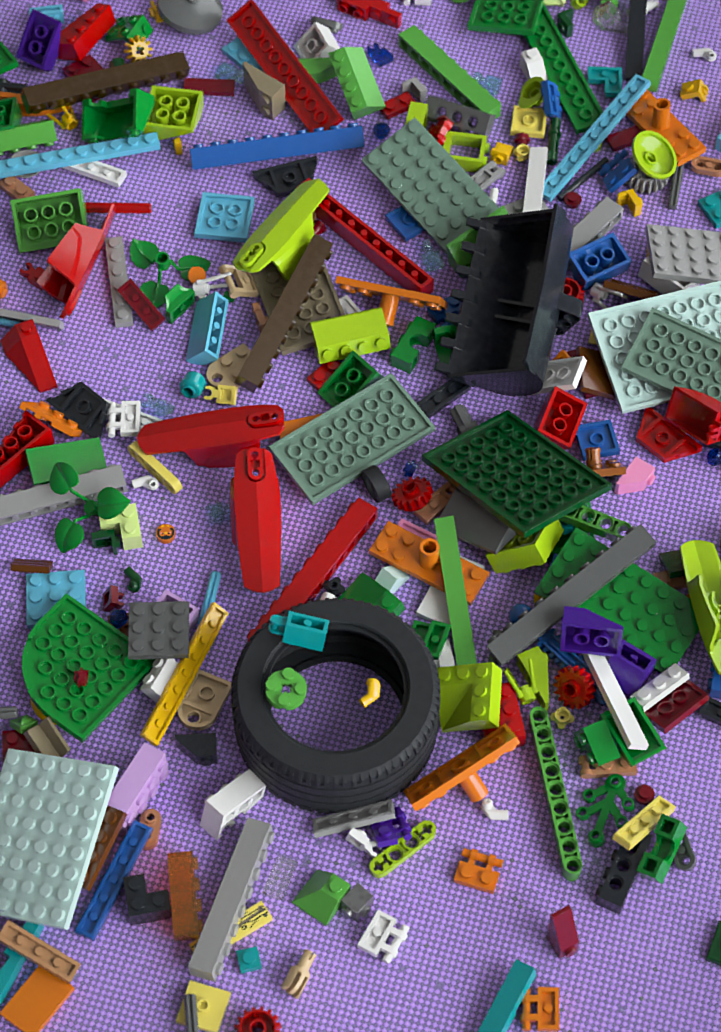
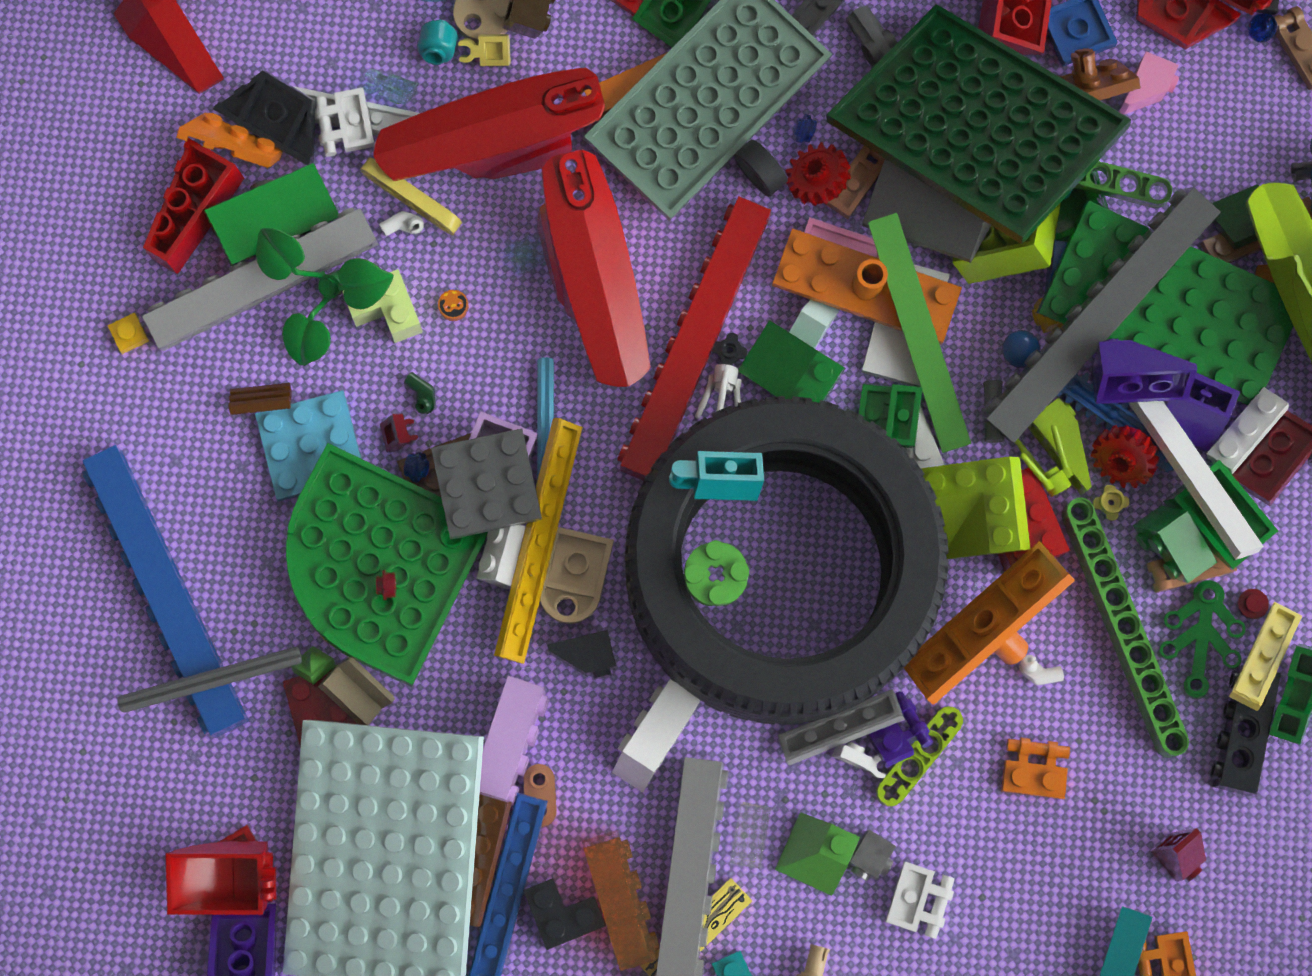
camera: 15 degrees left, 20 degrees up
(105, 538) = (361, 332): dark green bracket -> none
(373, 692) = (849, 554): yellow arm -> none

